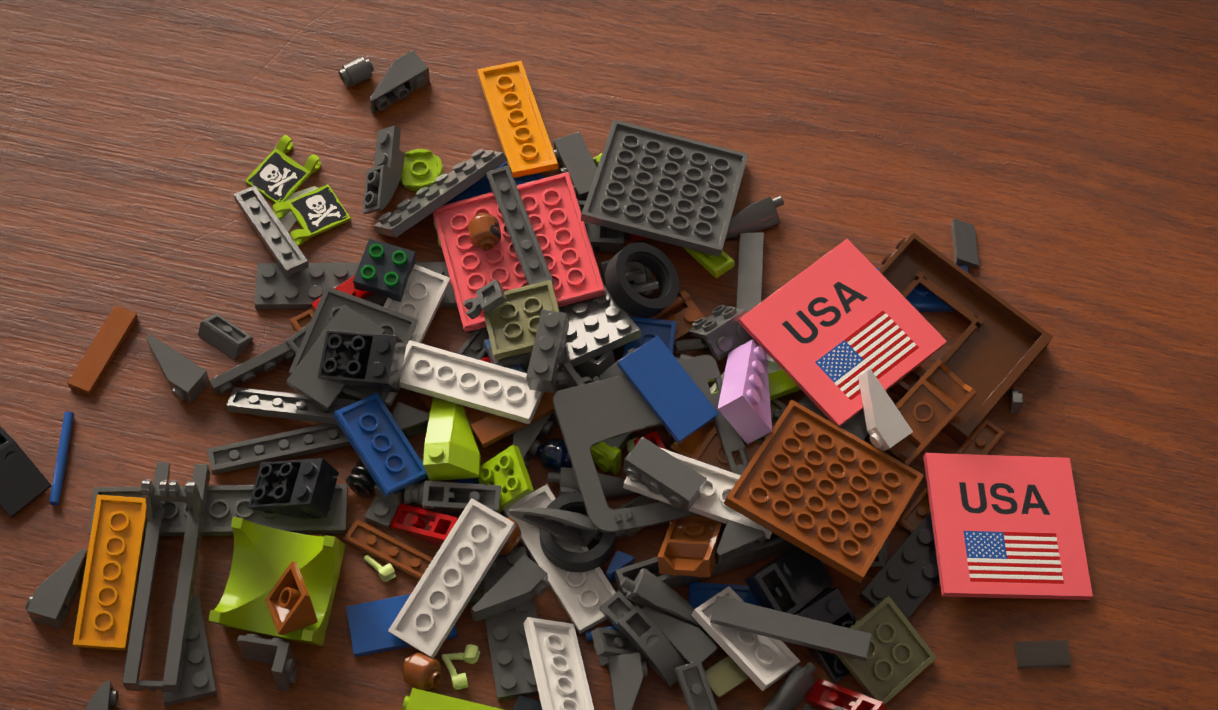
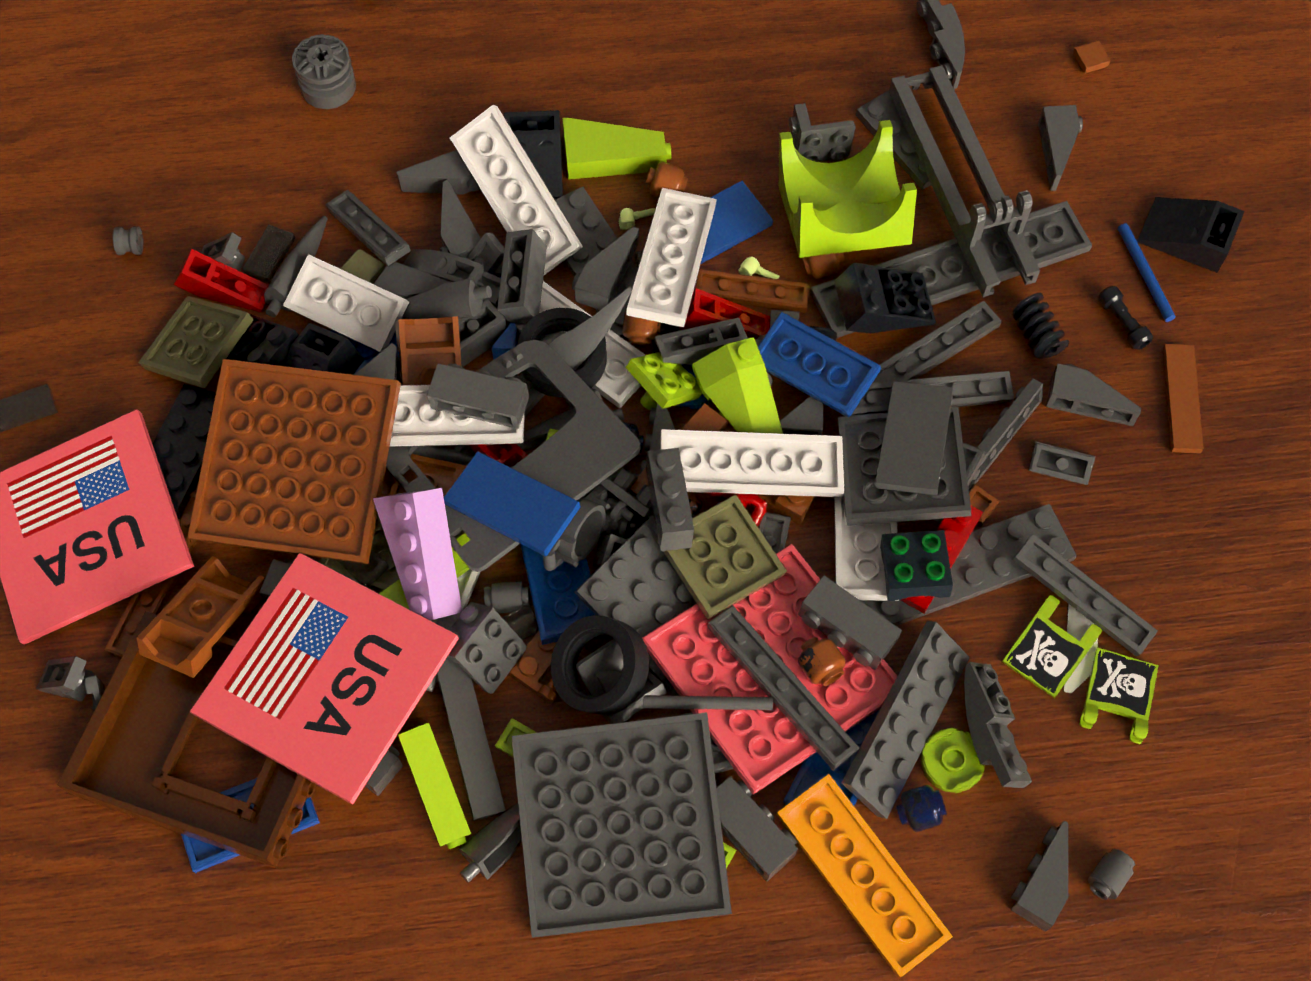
camera: 160 degrees right, 5 degrees up
(105, 441) = (1138, 335): none -> black piece
(111, 573) = (1023, 167): light orange plate -> none
(179, 434) = (1038, 328): none -> black piece
(290, 602) = (816, 164): dark orange slope -> none
(363, 360) = (878, 431): black slope -> none
(452, 250) = (849, 623): none -> dark grey brick
(458, 144) = (922, 808): none -> clear blue head
(458, 680) = (628, 190): yellowish green hand -> none
(487, 299) = (774, 559): dark grey plate -> none
(576, 230) = (707, 702): none -> dark grey bar
(587, 602) = (522, 276): none -> dark grey brick
(783, 250) = (435, 786): none -> lime slope
(790, 628) = (295, 308): dark grey tile -> none
(882, 417) = (246, 573): white slope -> none
(964, 244) = (202, 905): dark grey slope -> none
(1038, 417) = (65, 678): none -> dark grey slope

